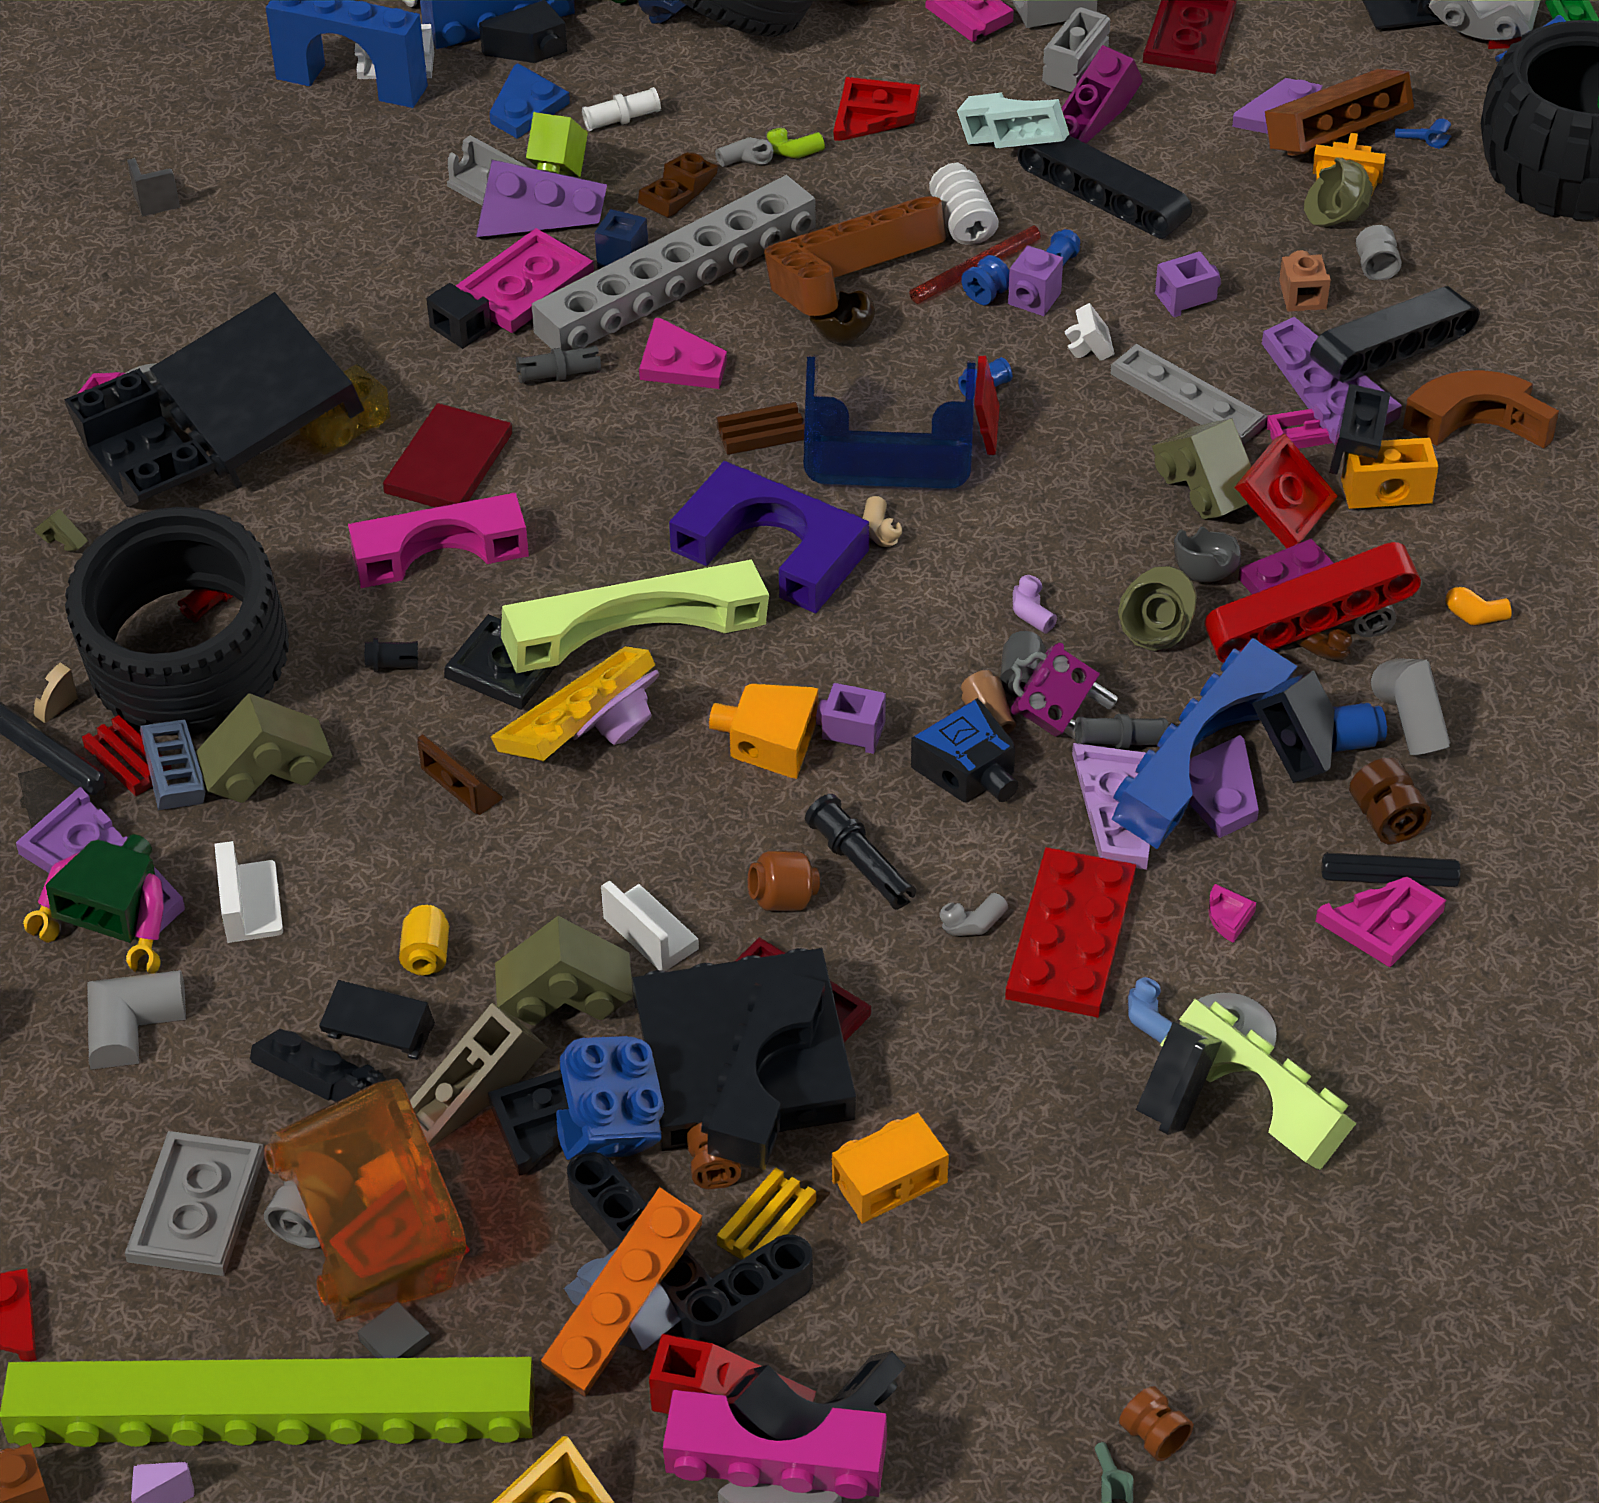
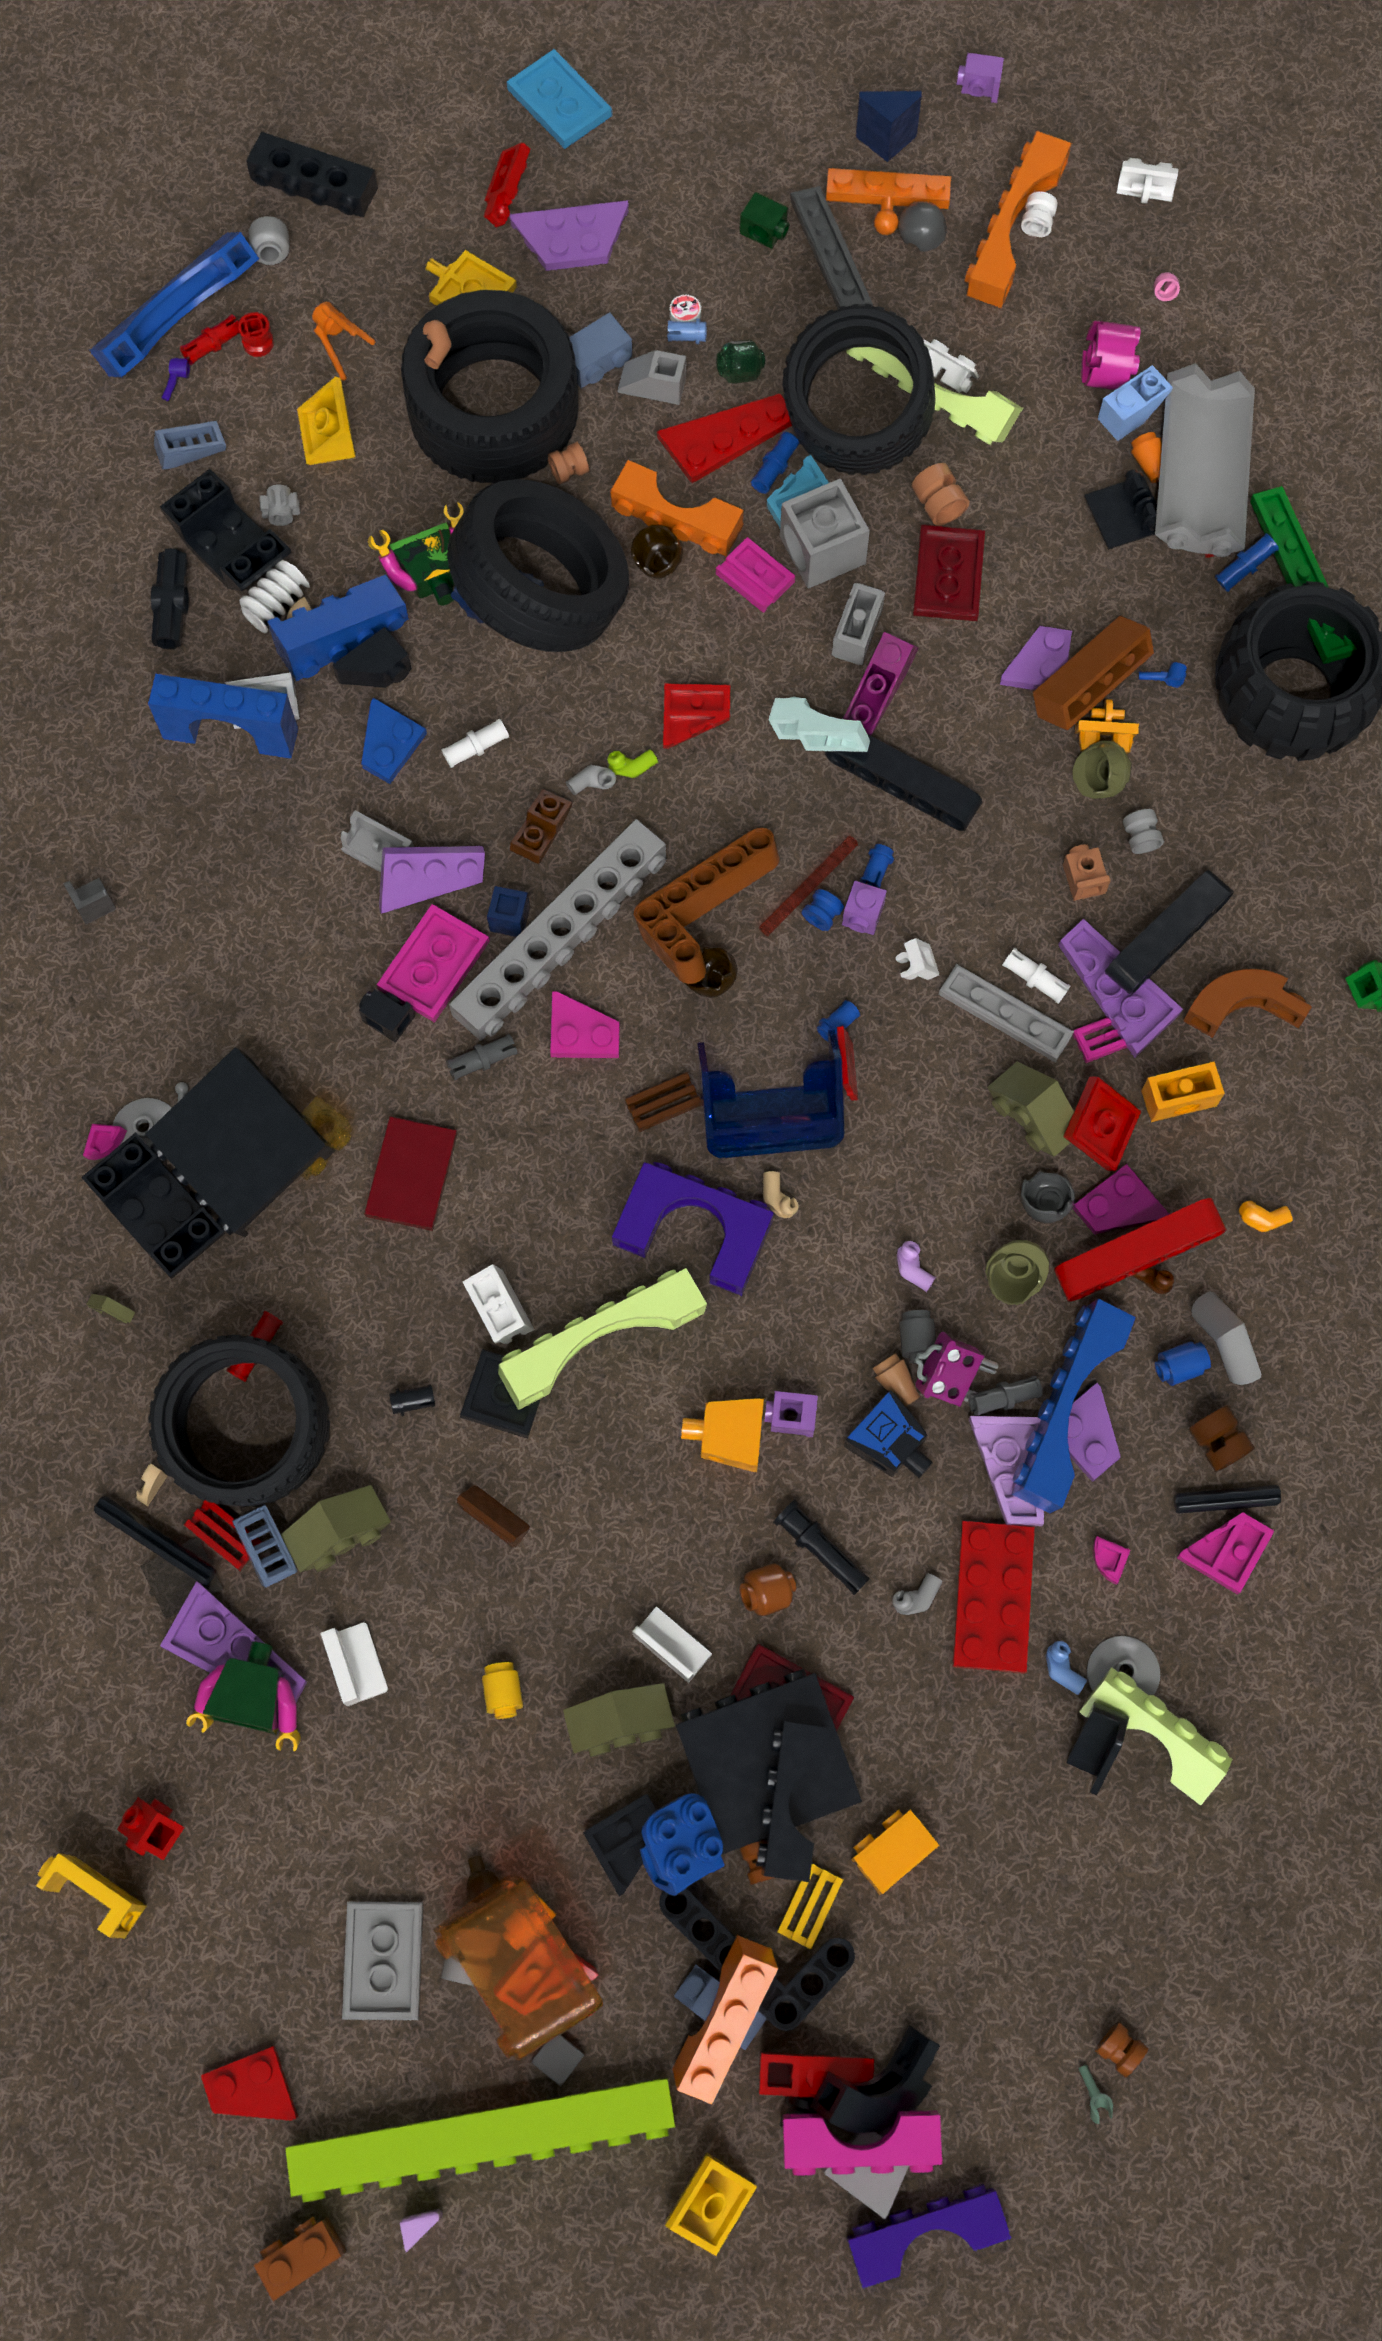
camera: 10 degrees left, 25 degrees up
(122, 1005) = (279, 1791): light grey brick -> none
(312, 1067) = (447, 1827): black hinge -> none
(378, 1018) = (483, 1776): black hinge -> none
(485, 527) = (382, 1287): dark pink arch -> none
(487, 1058) = (567, 1817): dark tan slope -> none
(514, 568) = (497, 1304): none -> white hinge
(556, 144) = (433, 814): lime brick -> none
(564, 713) = (566, 1445): yellow wing -> none
(624, 713) = (605, 1440): lavender hat -> none
(964, 204) = (788, 827): white piece -> none
(1186, 282) = (993, 879): medium lavender brick -> none
(1230, 363) = (1036, 975): none -> white pin
(1299, 725) = (1144, 1378): black slope -> none
(1360, 424) = (1156, 1058): black panel -> none

